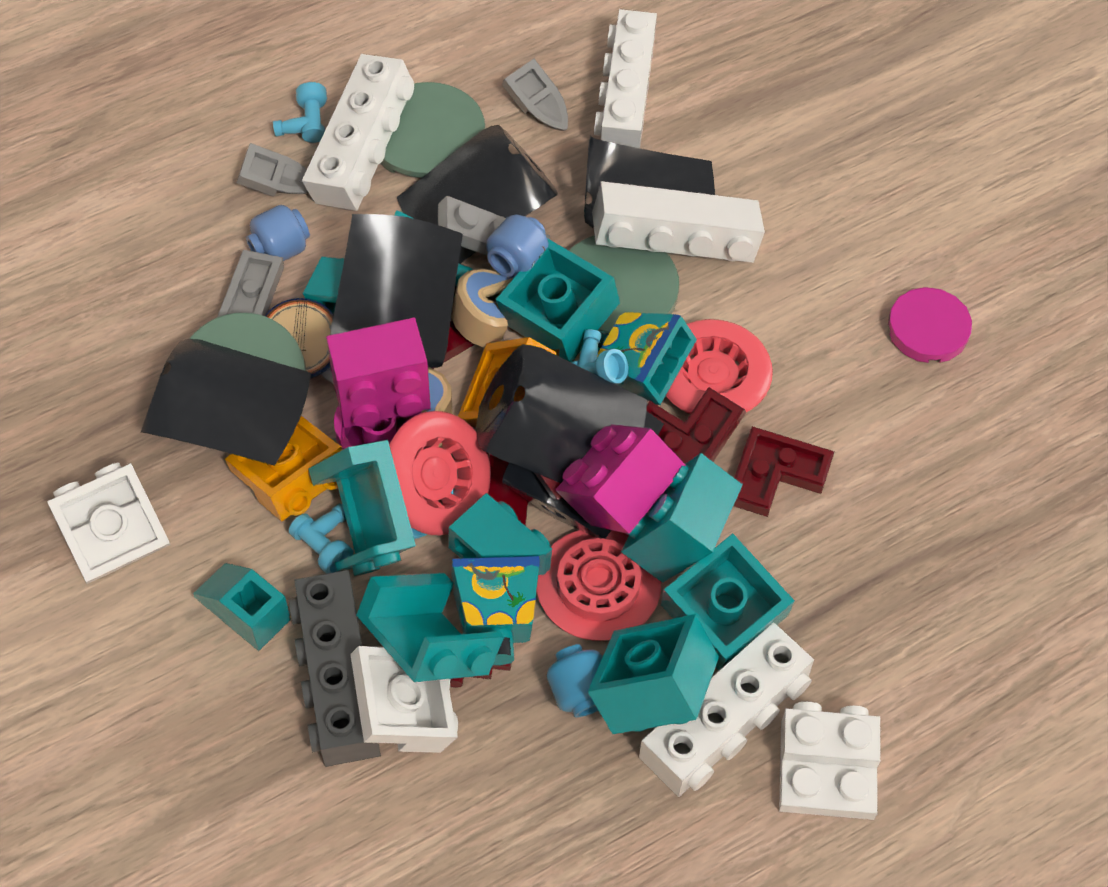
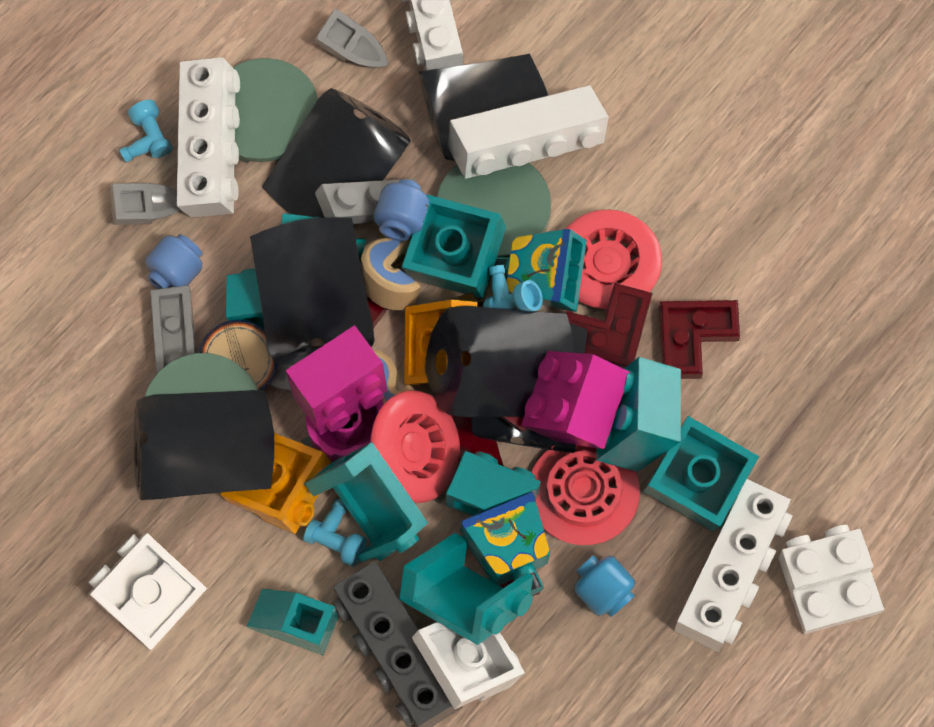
camera: 15 degrees left, 10 degrees up
(654, 675) = (668, 563): teal brick -> none
(929, 325) = (776, 150): dark pink tile -> none

